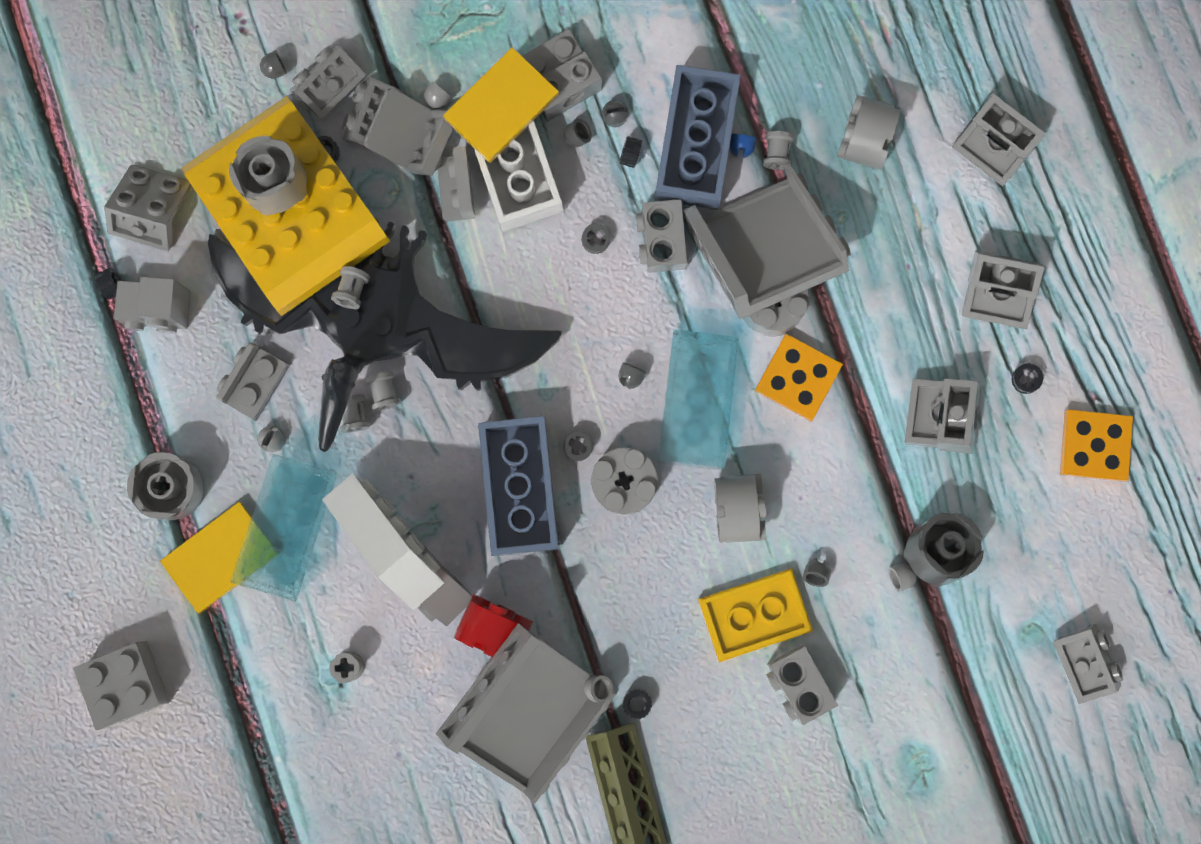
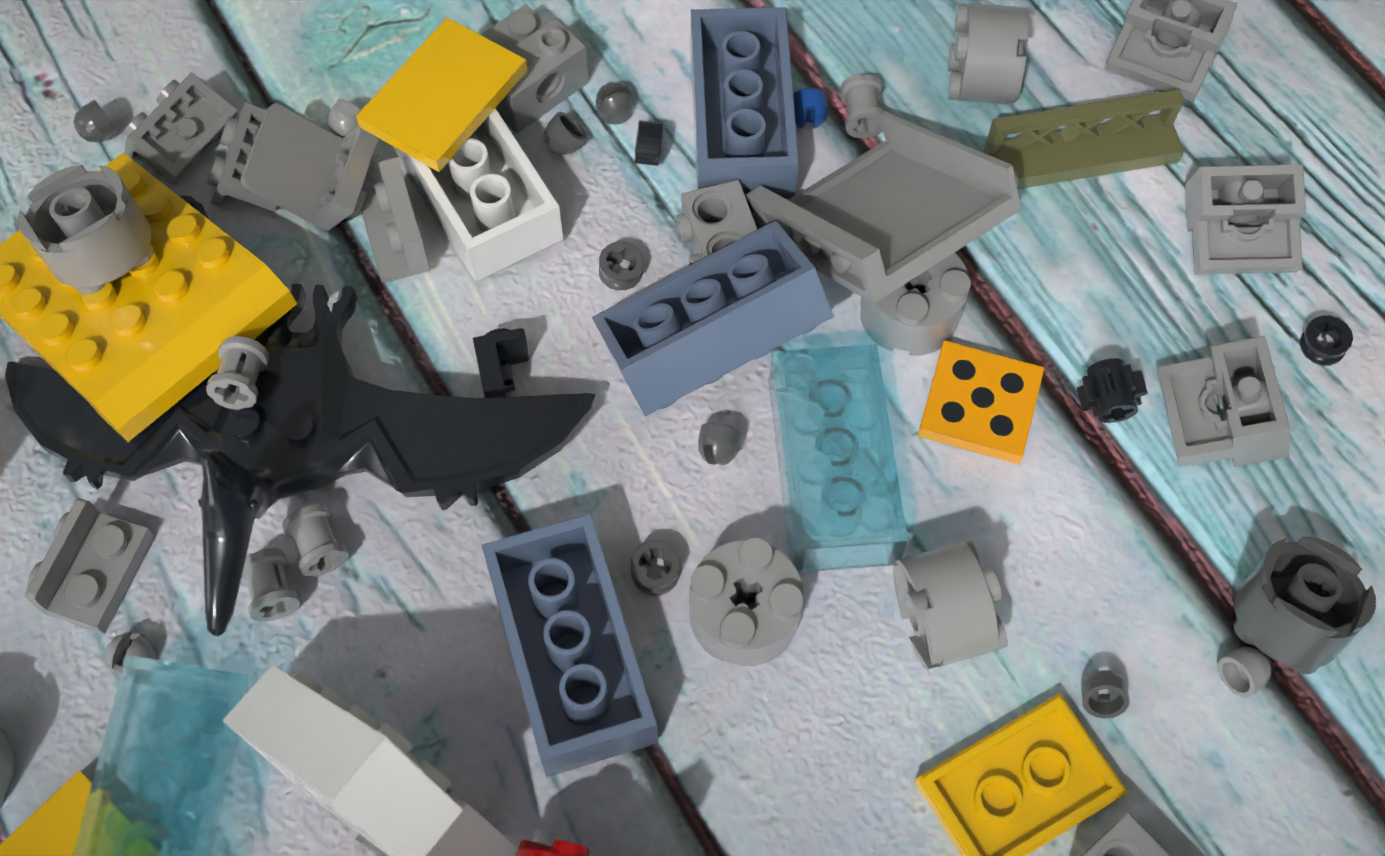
camera: 15 degrees left, 20 degrees down
(503, 304) = (494, 357): none -> black bracket
(641, 300) = (713, 317): none -> sand blue brick
(878, 390) = (1112, 390): none -> black gear
(917, 208) = (1086, 146): none -> olive fence

